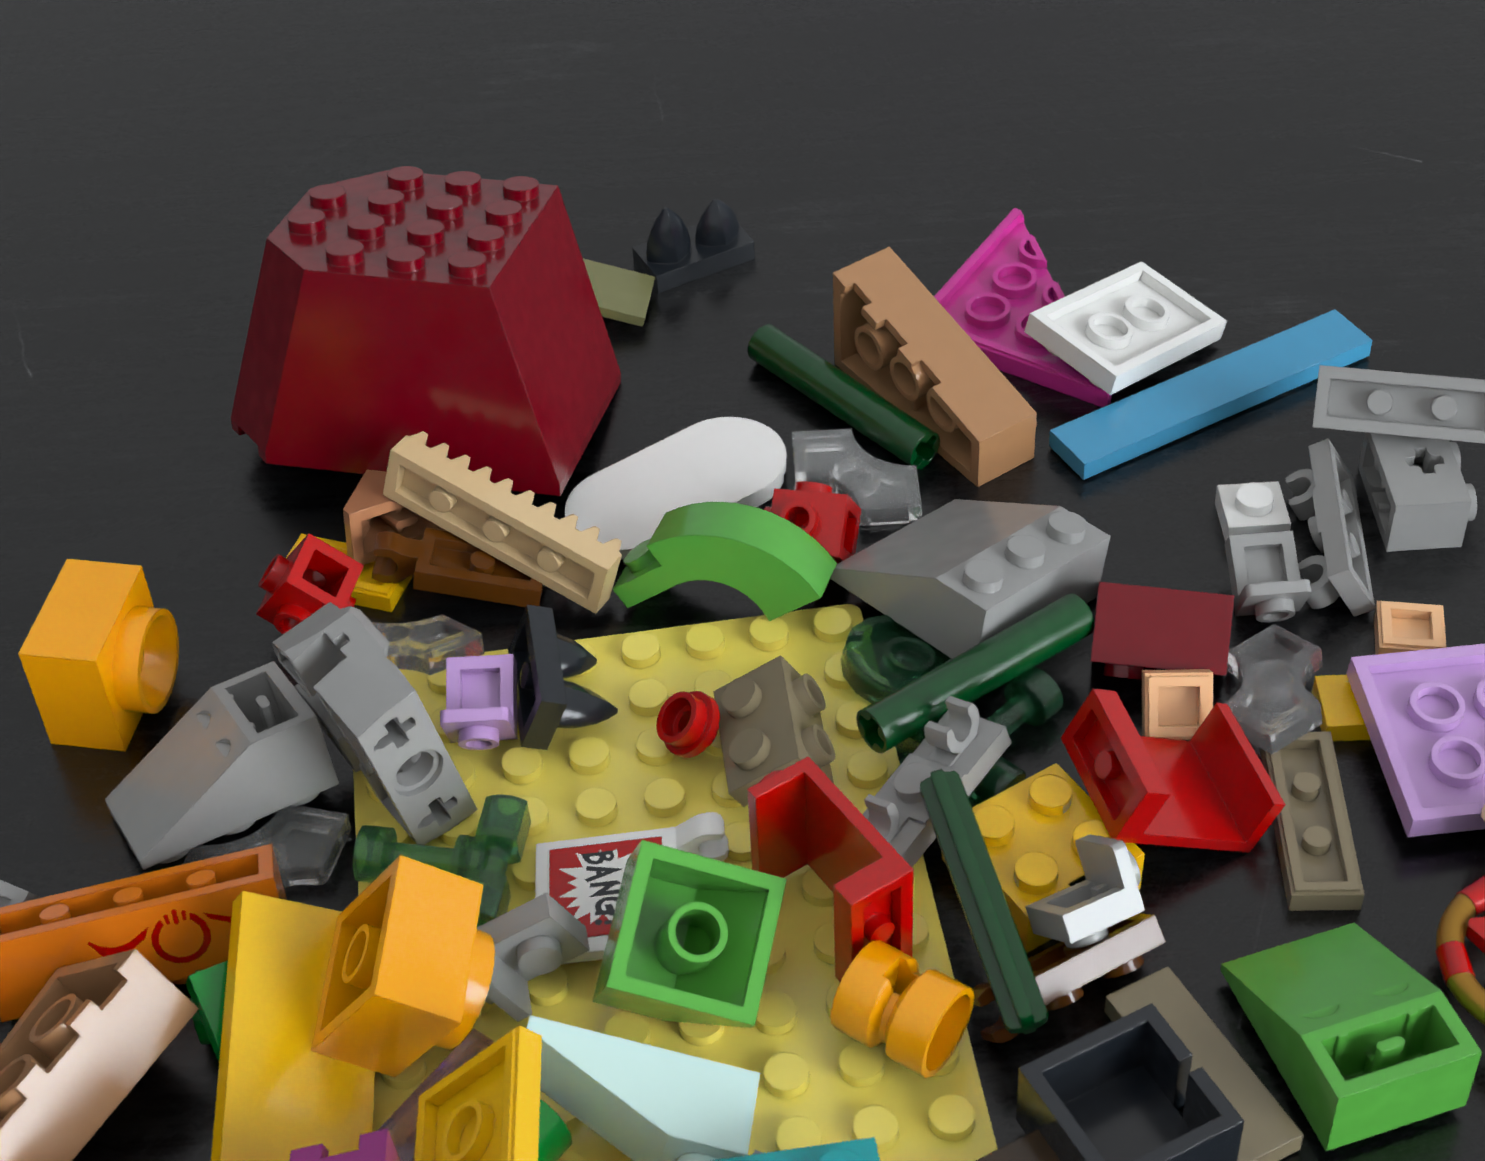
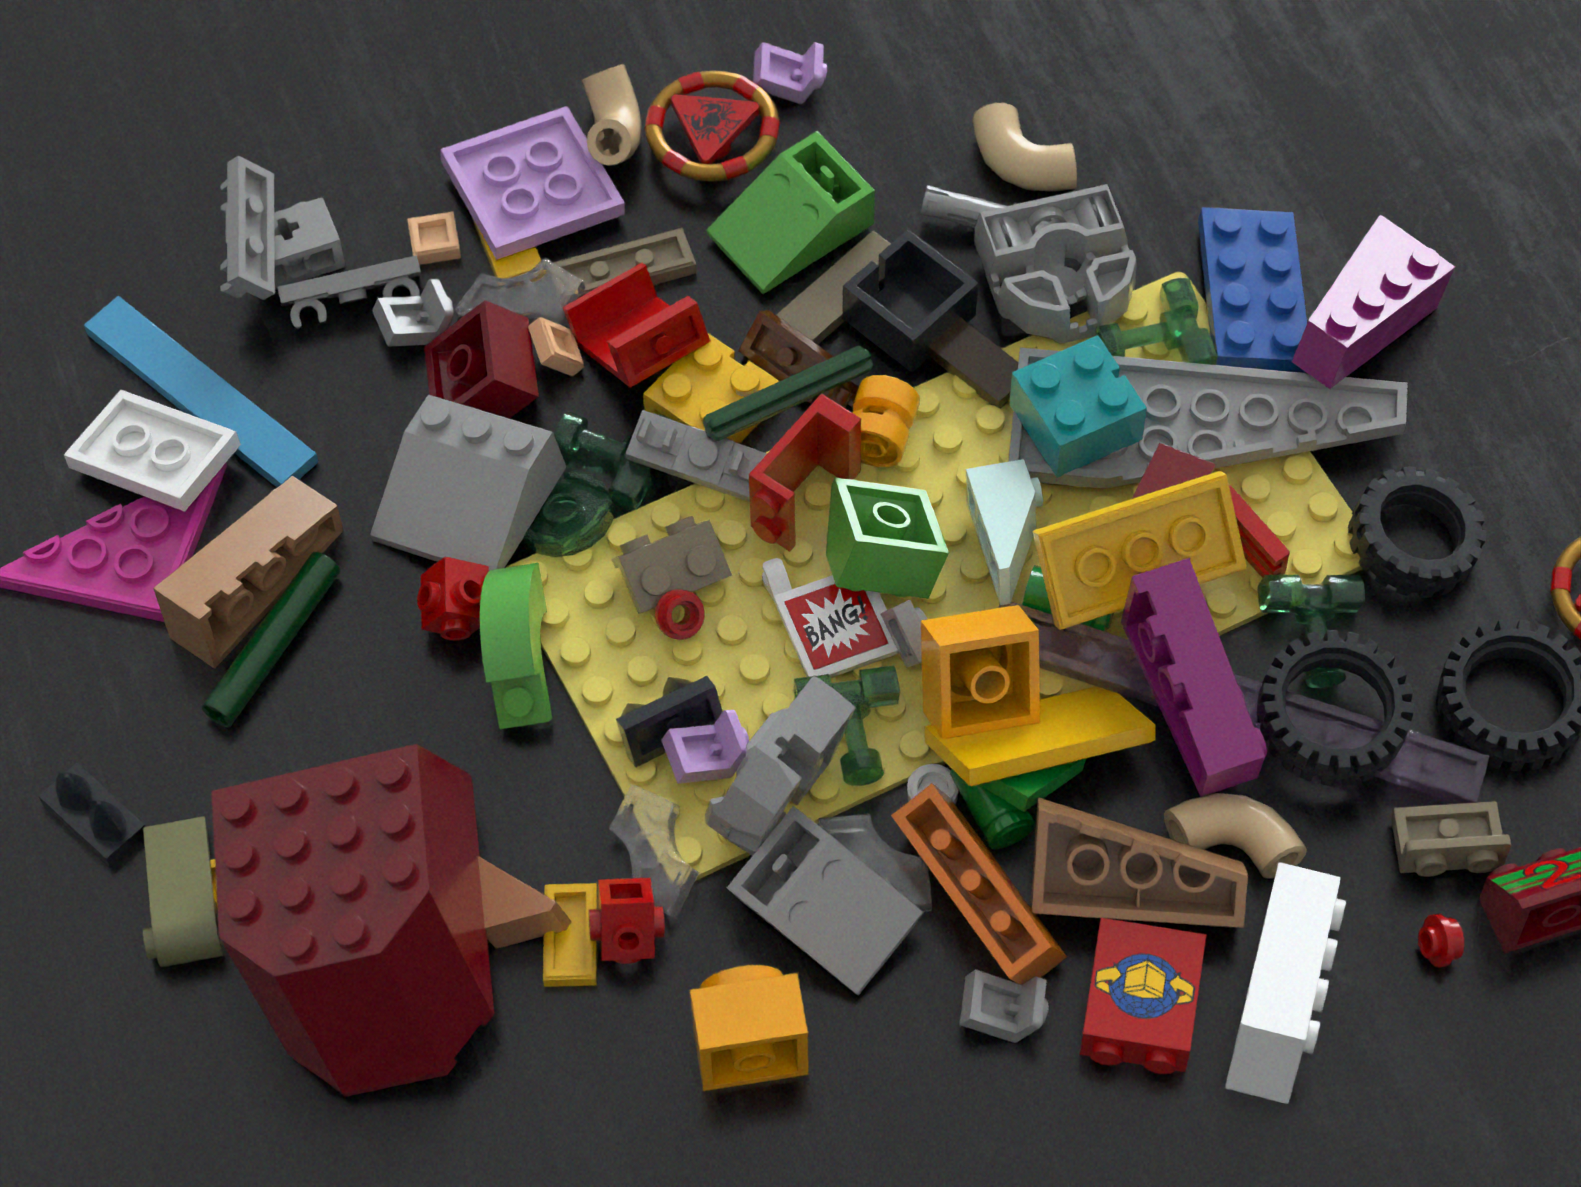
camera: 110 degrees left, 15 degrees up
(451, 567) = (556, 828): reddish brown plate -> none
(502, 522) = (526, 792): tan gear -> none
(702, 463) = (387, 704): white tile -> none
(881, 489) = (353, 623): clear tile -> none
(975, 672) = (590, 450): dark green piece -> none
(1089, 907) = (763, 342): light grey bracket -> none
(1251, 508) = (334, 345): white plate -> none

